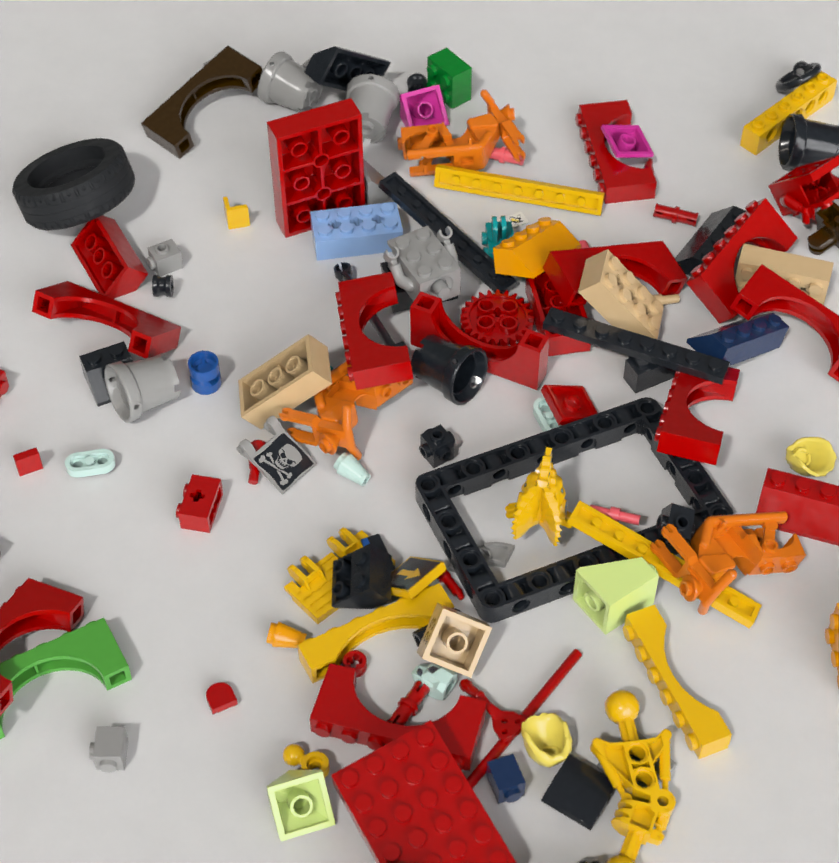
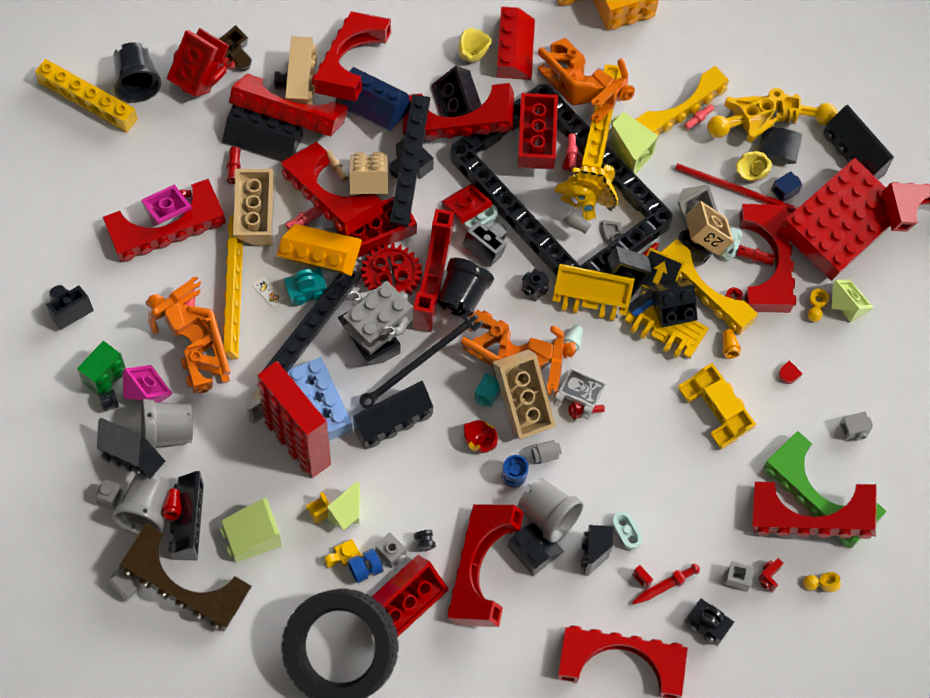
camera: 110 degrees left, 15 degrees up
(10, 497) = (677, 578): none -> red sword
(79, 418) = (597, 545): none -> black slope
(155, 229) = (358, 568): none -> blue wheel
(180, 228) = (342, 554): none -> yellow plate
(200, 503) = (647, 429): red brick -> none
(204, 597) = (723, 403): none -> yellow bracket
(217, 409) = (546, 452): none -> light grey brick
(222, 226) = (346, 508): none -> yellowish green slope
(232, 161) = (251, 531): none -> yellowish green slope
(252, 115) = (187, 527): none -> black slope
(258, 350) = (480, 436): none -> red hair
(278, 97) = (172, 505): none -> red cone
(313, 282) = (393, 415): none -> black slope
(369, 361) = (427, 361): red arch -> none
(404, 489) = (593, 288): none -> yellow hinge
(422, 530) = (628, 264): none -> black slope
(498, 716) = (743, 200): red piece -> none
(503, 651) = (692, 196): none -> light grey slope
(505, 490) = (576, 221): none -> light grey cone
(509, 409) = (486, 242): none -> black brick
(530, 68) = (68, 305): none -> black brick
(611, 215) = (254, 206): none -> tan slope
(647, 473) = (537, 131): none -> red brick
(653, 703) = (699, 116): none -> coral bar
(678, 516) = (575, 109): black brick -> none
(740, 430) = (456, 93): none -> black slope
(787, 82) = (23, 93): black piece -> none

